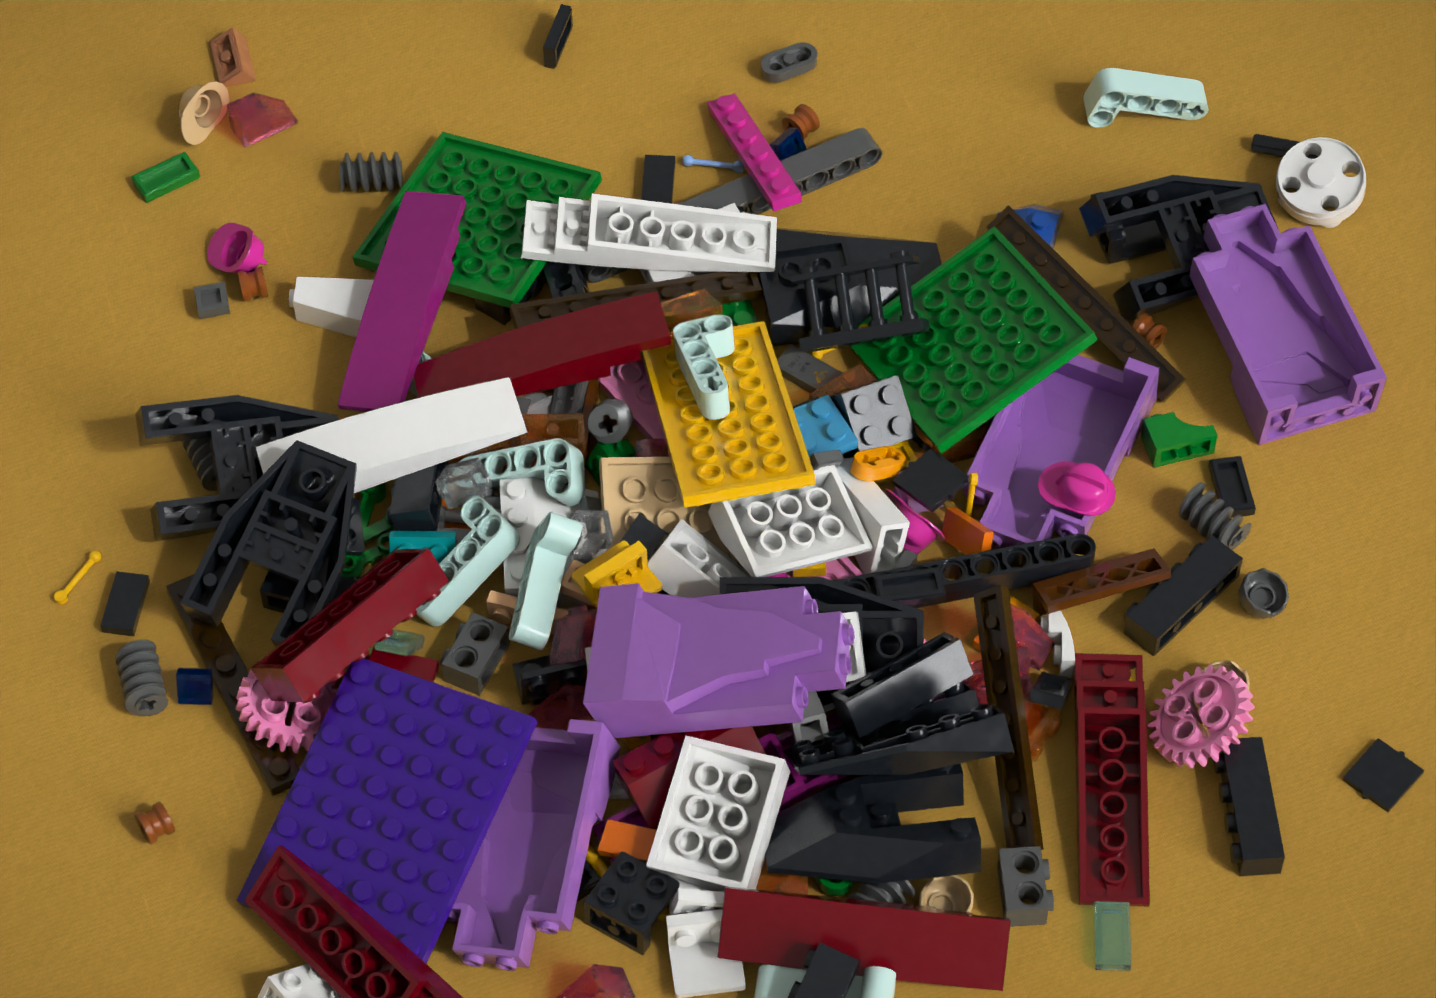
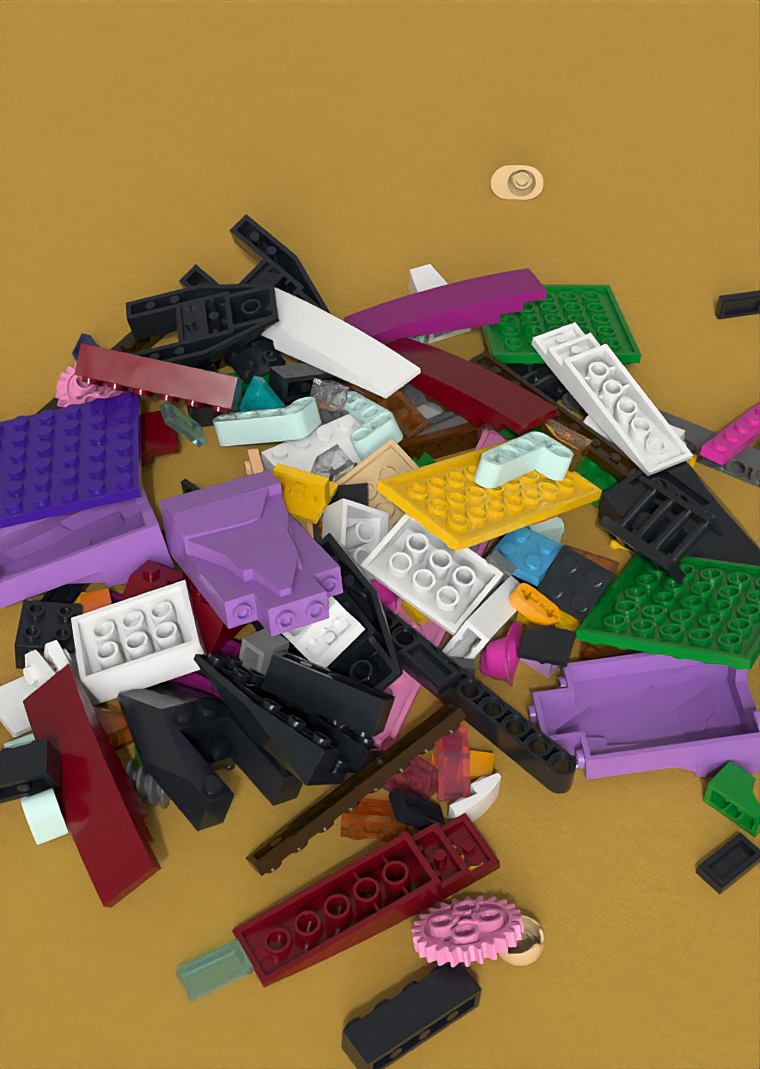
camera: 55 degrees right, 10 degrees down
(61, 595) = (118, 276): yellow hinge -> none
(125, 603) = (117, 302): black tile -> none
(141, 678) = (70, 326): dark grey piece -> none
(165, 177) = (461, 193): green tile -> none
(211, 300) = (385, 244): dark grey plate -> none
(232, 58) = (575, 184): nougat slope -> none
(235, 249) = (430, 239): dark pink piece -> none
(252, 284) = (412, 254): dark orange wheel -> none
(259, 117) = (539, 207): clear pink slope -> none
(371, 171) = (544, 265): dark grey piece -> none
(480, 655) = (206, 466): dark grey brick -> none
(542, 579) = (295, 453): light aqua beam -> none
(616, 410) = (441, 443): dark grey piece -> none
(658, 178) = (679, 400): black tile -> none
(737, 166) = (711, 410): light blue hinge -> none
(805, 369) = (593, 539): dark grey tile -> none
(947, 894) = (169, 830): tan hair -> none
(965, 532) = (524, 690): orange tile -> none
(973, 481) = (563, 664): yellow hinge -> none
(1021, 886) = (213, 873): dark grey brick -> none
(1077, 488) = (616, 738): dark pink piece -> none
(1099, 581) = (549, 801): reddish brown fence -> none
(1183, 596) = (589, 870): black brick -> none
(1210, 519) = (681, 857): dark grey piece -> none
(1263, 594) = (636, 929): dark grey hair -> none

